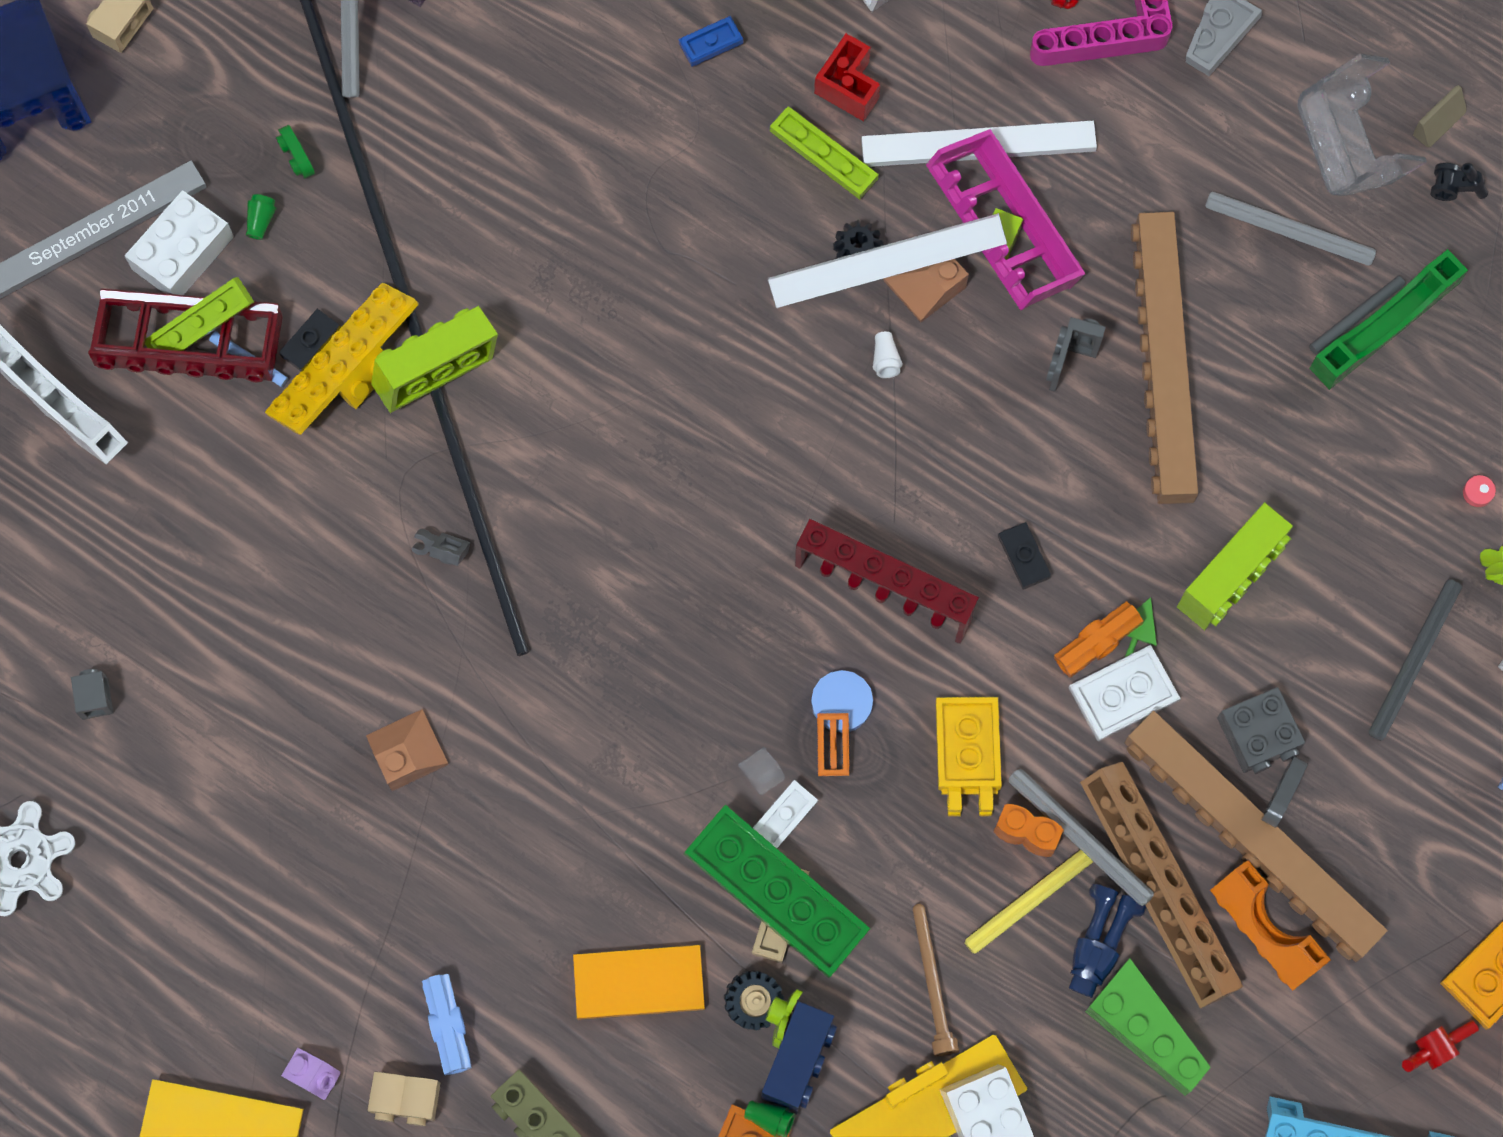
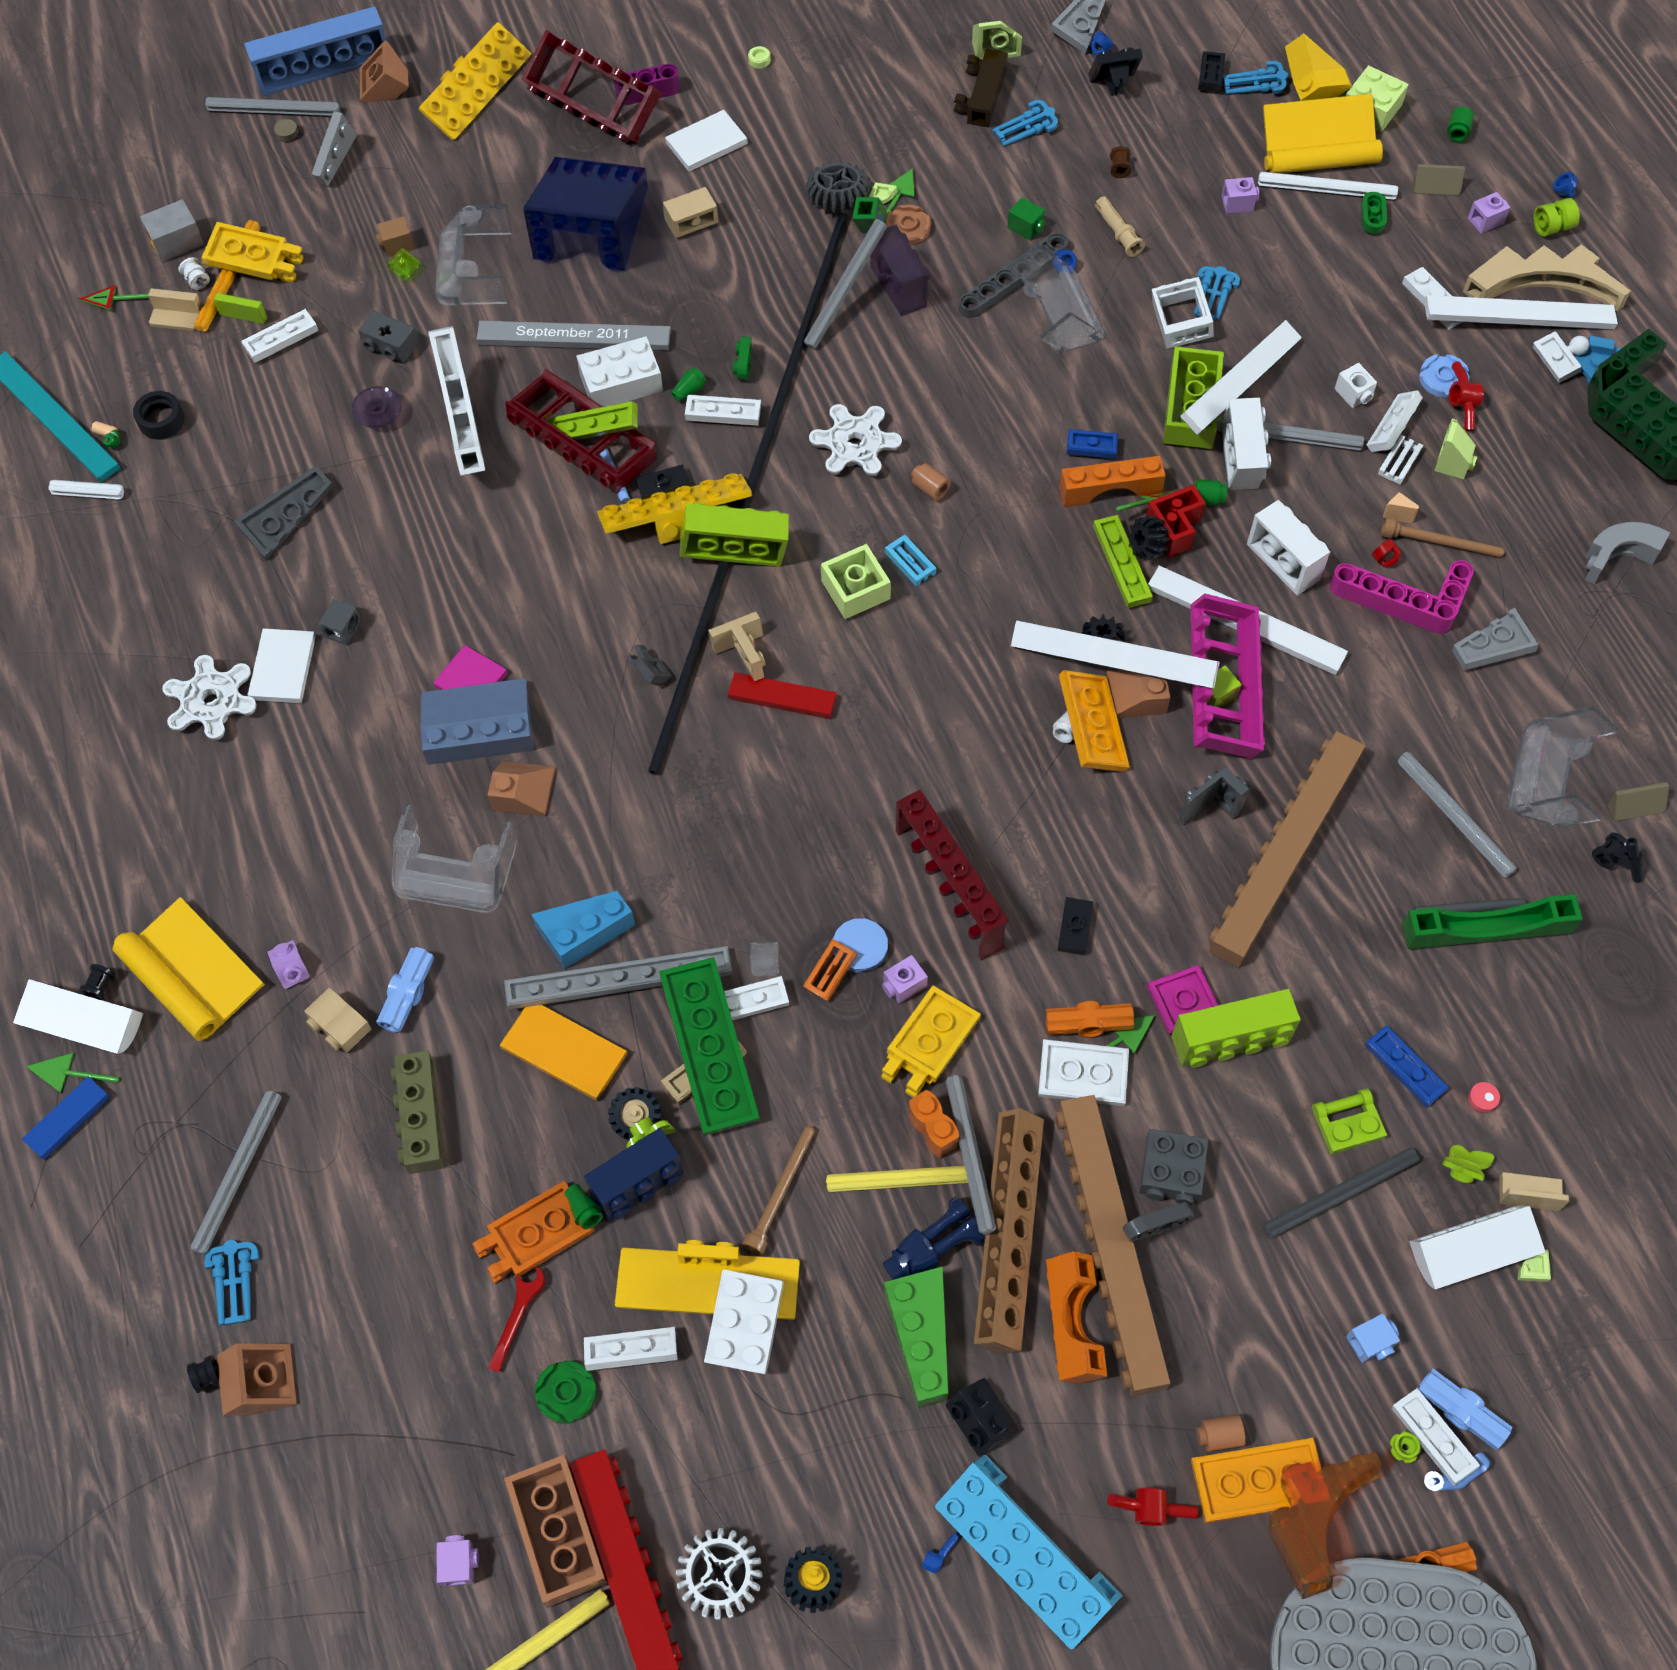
camera: 35 degrees right, 10 degrees down
(64, 778) = (282, 665): none -> white tile
(268, 670) = (469, 669): none -> dark pink tile
(310, 710) = (476, 721): none -> sand blue slope
(315, 223) = (723, 410): none -> white plate
(404, 894) = (446, 880): none -> clear windscreen
(474, 158) = (849, 427): none -> white plate
(509, 459) = (740, 635): none -> tan bracket
(572, 852) = (583, 926): none -> dark azure wedge
(580, 178) = (930, 481): none -> nougat brick
(584, 333) = (855, 581): none -> yellowish green brick
(592, 495) = (782, 695): none -> red tile
(613, 285) = (900, 563): none -> medium azure tile
(634, 885) = (604, 978): none -> light grey tile
(777, 54) = (1084, 483): none -> orange arch
(815, 59) = (1149, 497): none -> bright green piece
(838, 115) = (1148, 537): none -> black gear
(860, 26) = (1211, 491): none -> green brick
(908, 710) = (904, 980): none -> lavender brick
(909, 339) = (1094, 721): none -> light orange tile
(974, 46) = (1288, 547): none -> white brick
(1166, 565) = (1181, 994): none -> dark pink tile
(1246, 1066) = (981, 1416): none -> black bracket
(1388, 595) = (1352, 1130): none -> lime plate
(1396, 504) = (1406, 1066): none -> blue tile
(1453, 943) = (1221, 1433): none -> nougat brick

